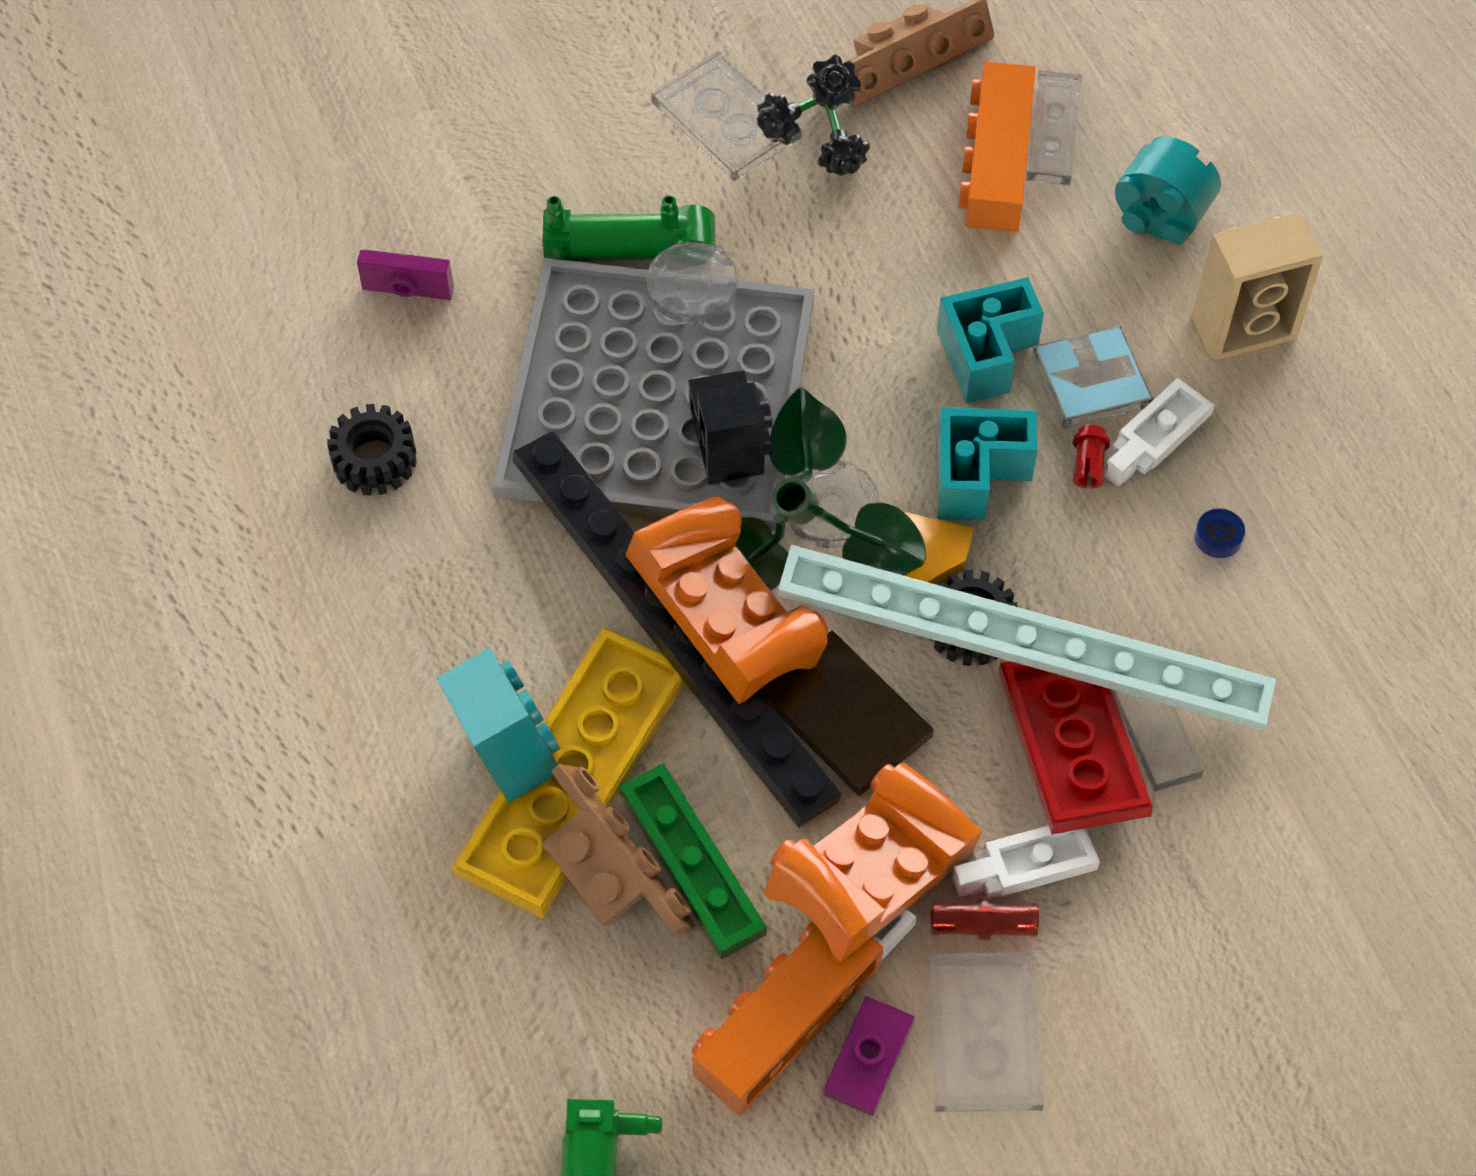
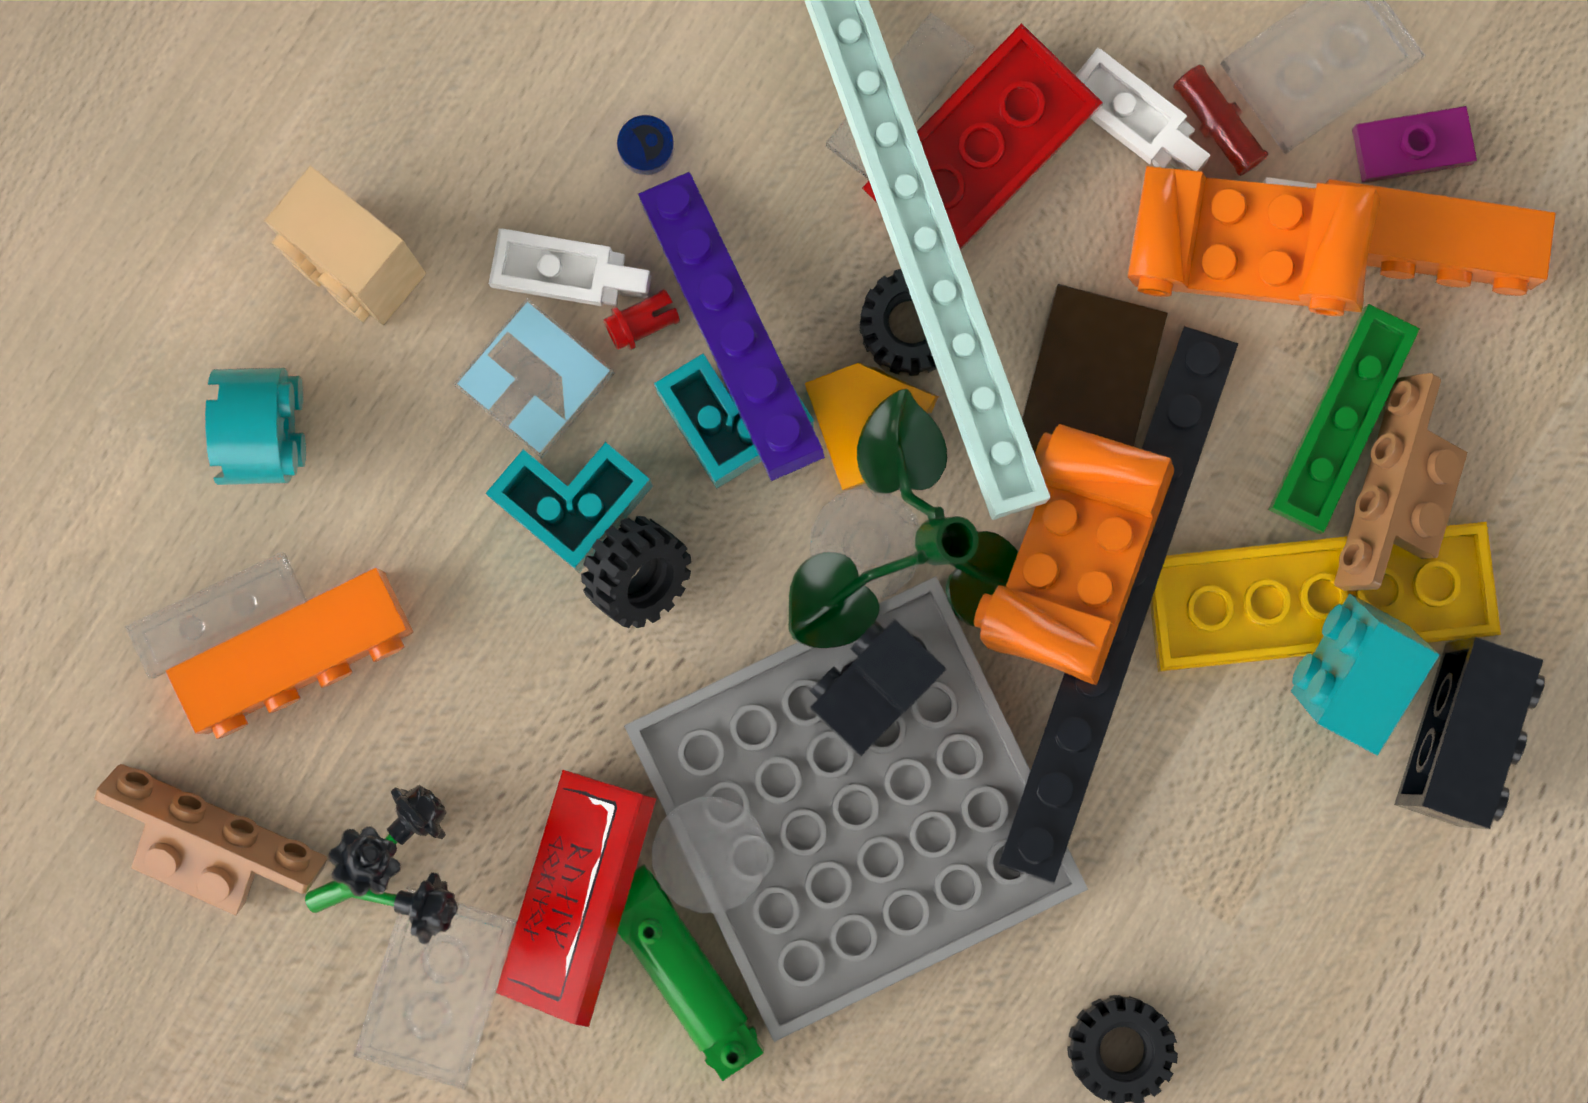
camera: 130 degrees left, 25 degrees up
(400, 776) = (1471, 733): none -> black brick
(723, 201) = (575, 897): none -> red tile
(929, 345) = (617, 560): none -> black tyre
(1047, 482) = (731, 327): none -> dark purple plate

